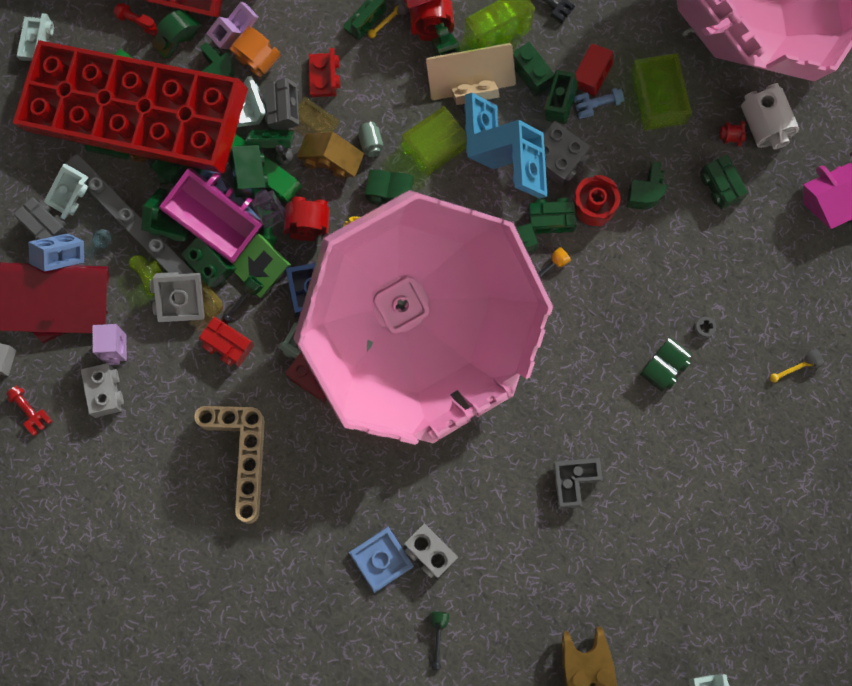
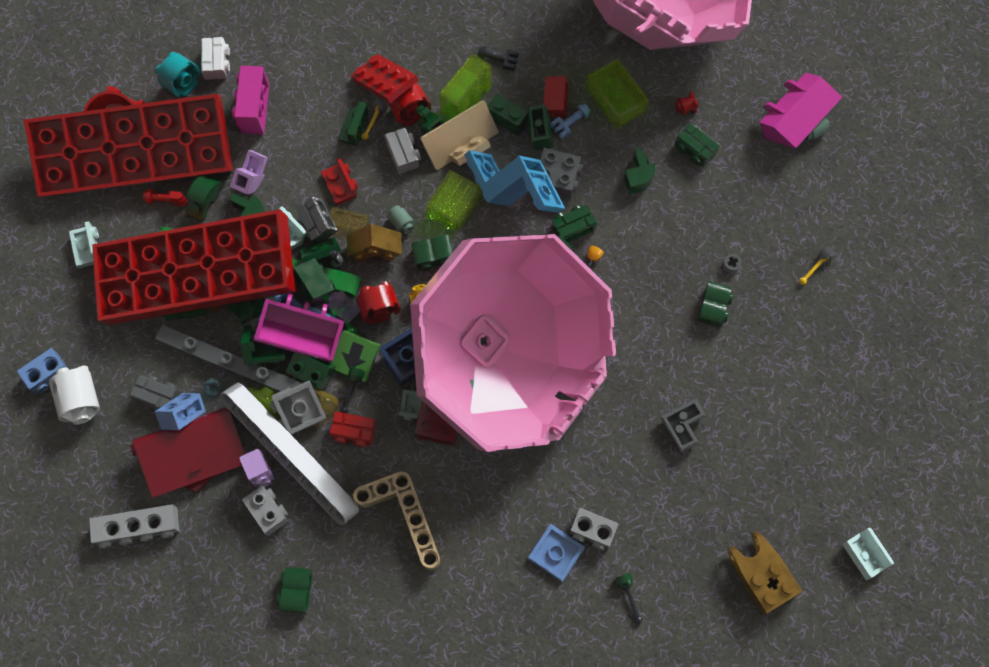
camera: 20 degrees left, 5 degrees down
(15, 394) = (193, 544): red hinge -> none
(66, 190) = (166, 358): light aqua bracket -> none
(97, 485) = (295, 590): none -> dark green brick
(149, 341) = (289, 453): none -> light grey beam
(255, 51) = (276, 185): orange brick -> none
(403, 64) = (402, 150): none -> light grey brick
(597, 188) = (613, 195): red brick -> none
(770, 117) = (710, 80): white cylinder -> none

